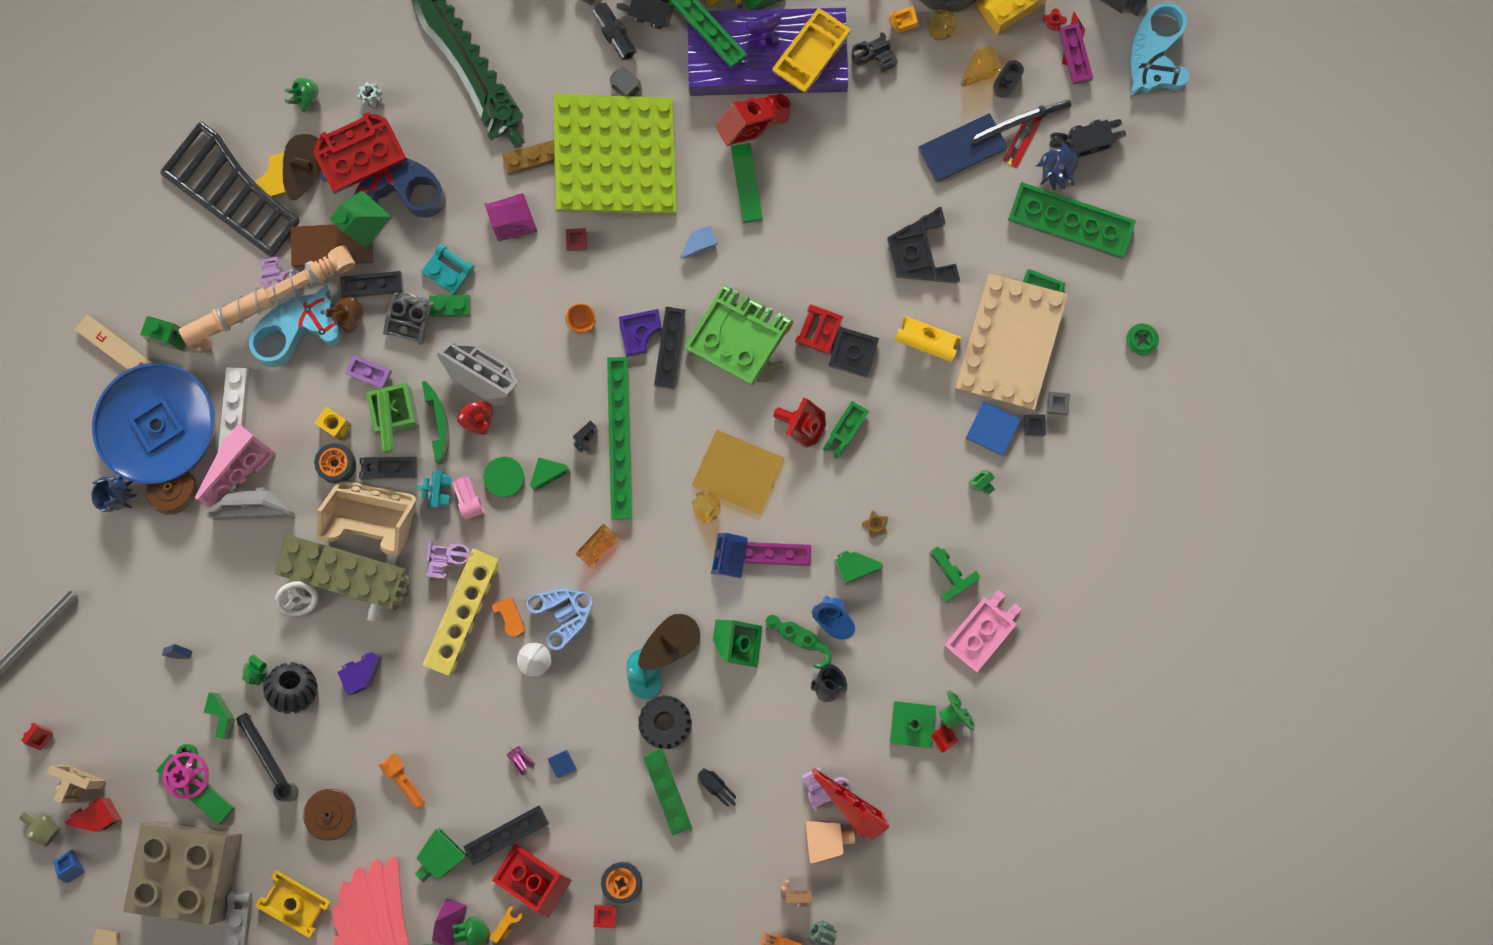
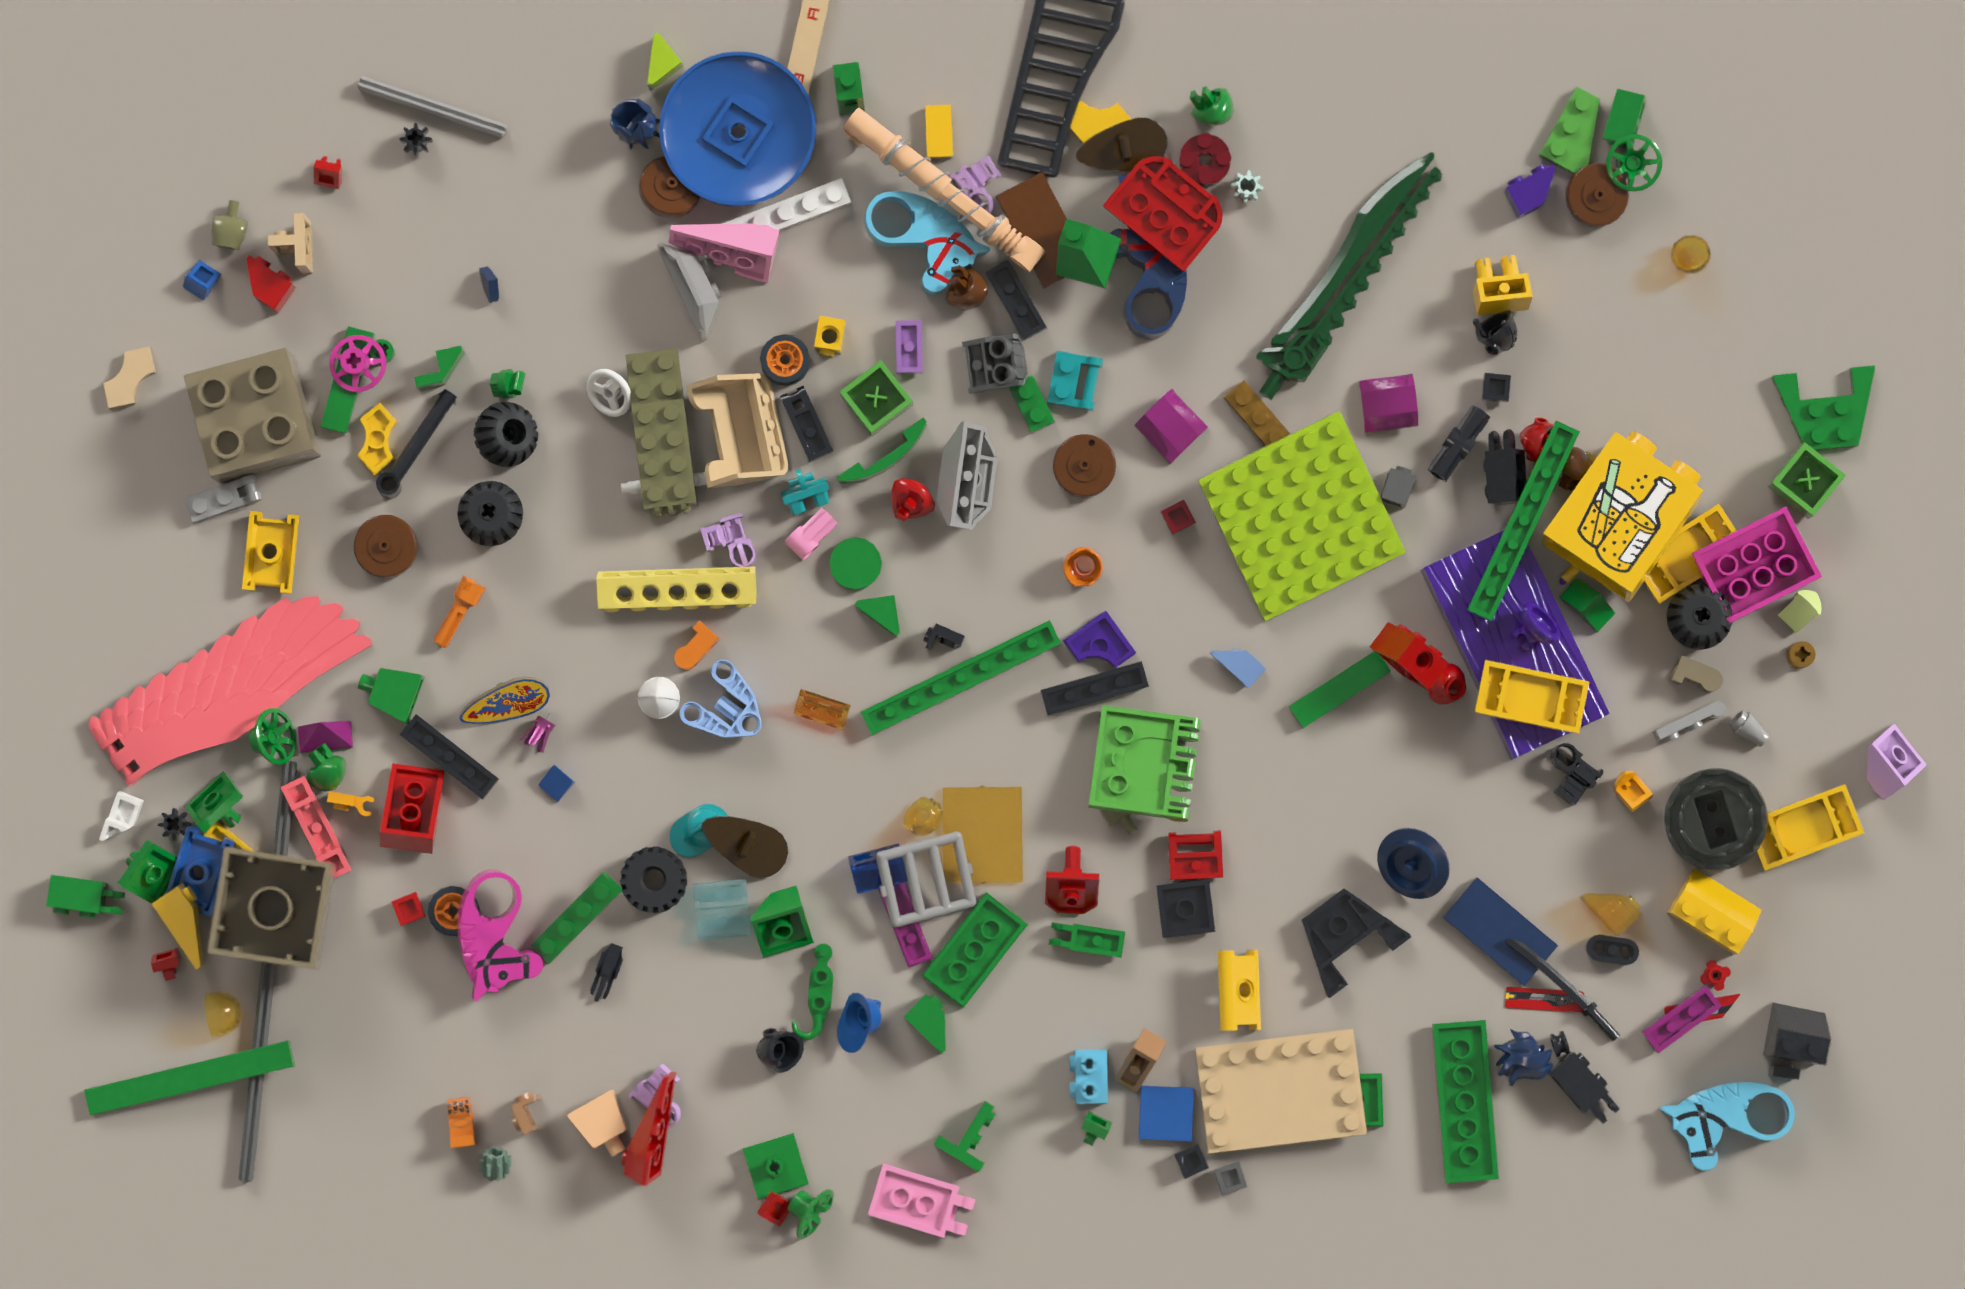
camera: 60 degrees right, 5 degrees up
(48, 654) = (421, 144): none -> black gear
(80, 455) = (662, 63): none -> lime slope
(227, 285) = (939, 131): none -> yellow tile
(241, 781) = (376, 450): none -> yellow tile
(335, 105) = (1210, 145): none -> dark red plate
(350, 734) = (489, 530): none -> black wheel
(361, 674) = (554, 506): dark purple slope -> none
(385, 422) = (855, 400): bright green axle -> none
(485, 773) = (507, 701): none -> shield
(510, 287) = (1084, 465): none -> reddish brown wheel
(565, 64) = (1389, 403): none -> magenta slope
(656, 872) = (484, 954): none -> dark pink animal
(708, 682) = (722, 909): none -> clear light blue slope
(727, 528) = (907, 851): none -> light grey bar
(818, 513) = (974, 950): none -> green tile
(874, 518) = (996, 1018): pearl gold plate -> none
(891, 182) = (1413, 863): none -> dark blue piece
(942, 25) = (1644, 840): clear yellow hair -> none
(944, 470) = (1090, 1076): none -> medium azure brick
(948, 429) = (1140, 1060): none -> medium nougat slope
(1140, 330) = (1360, 1257): green gear -> none

